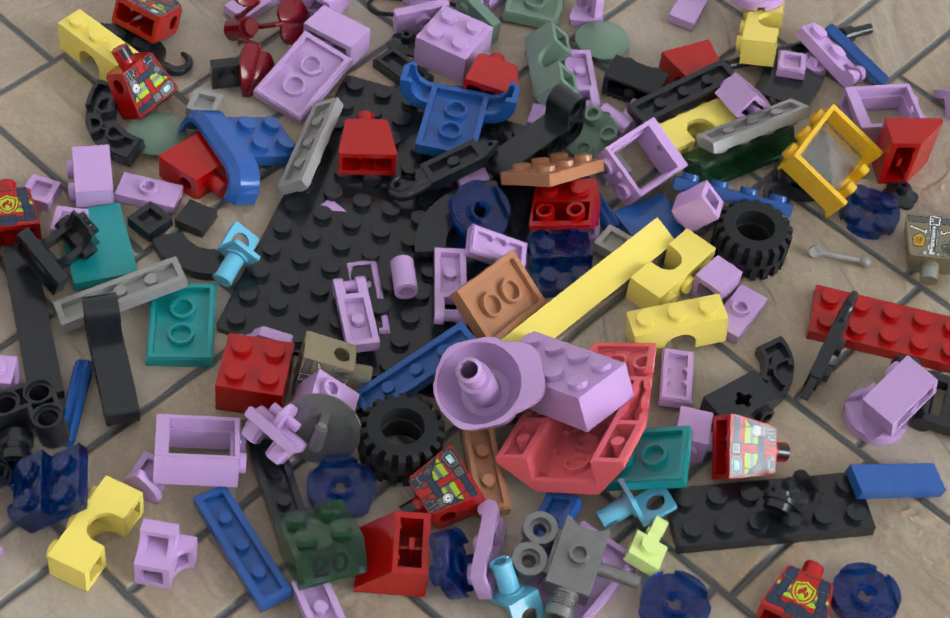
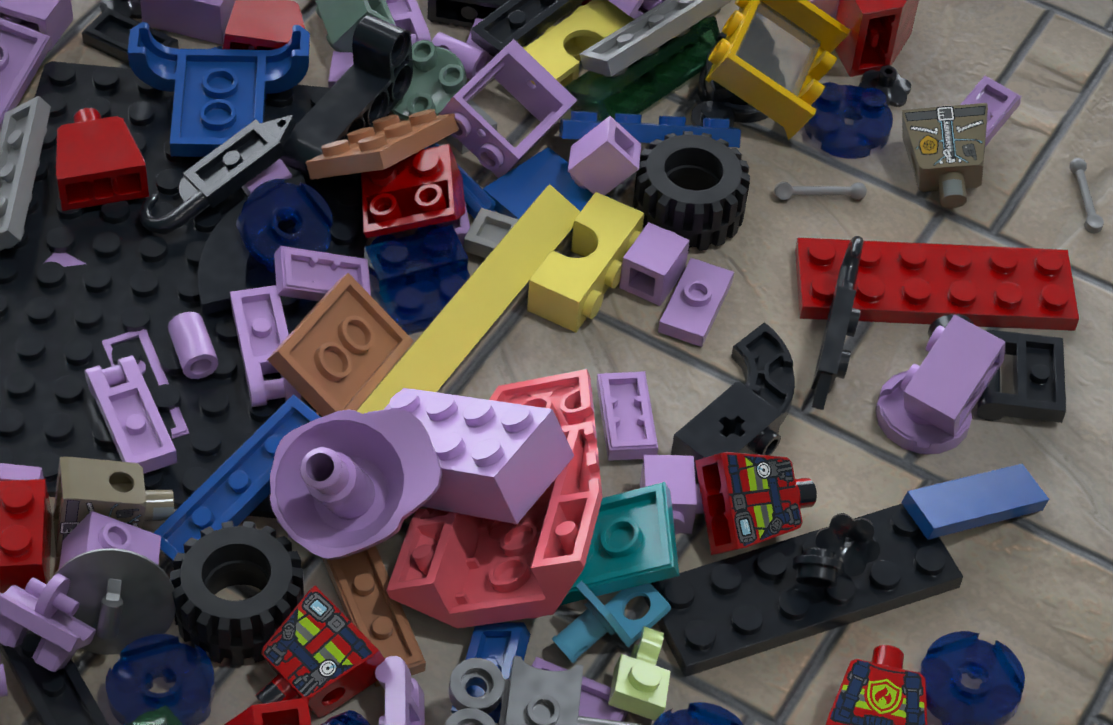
camera: 10 degrees left, 0 degrees up
(700, 317) = (642, 319): light yellow arch -> none

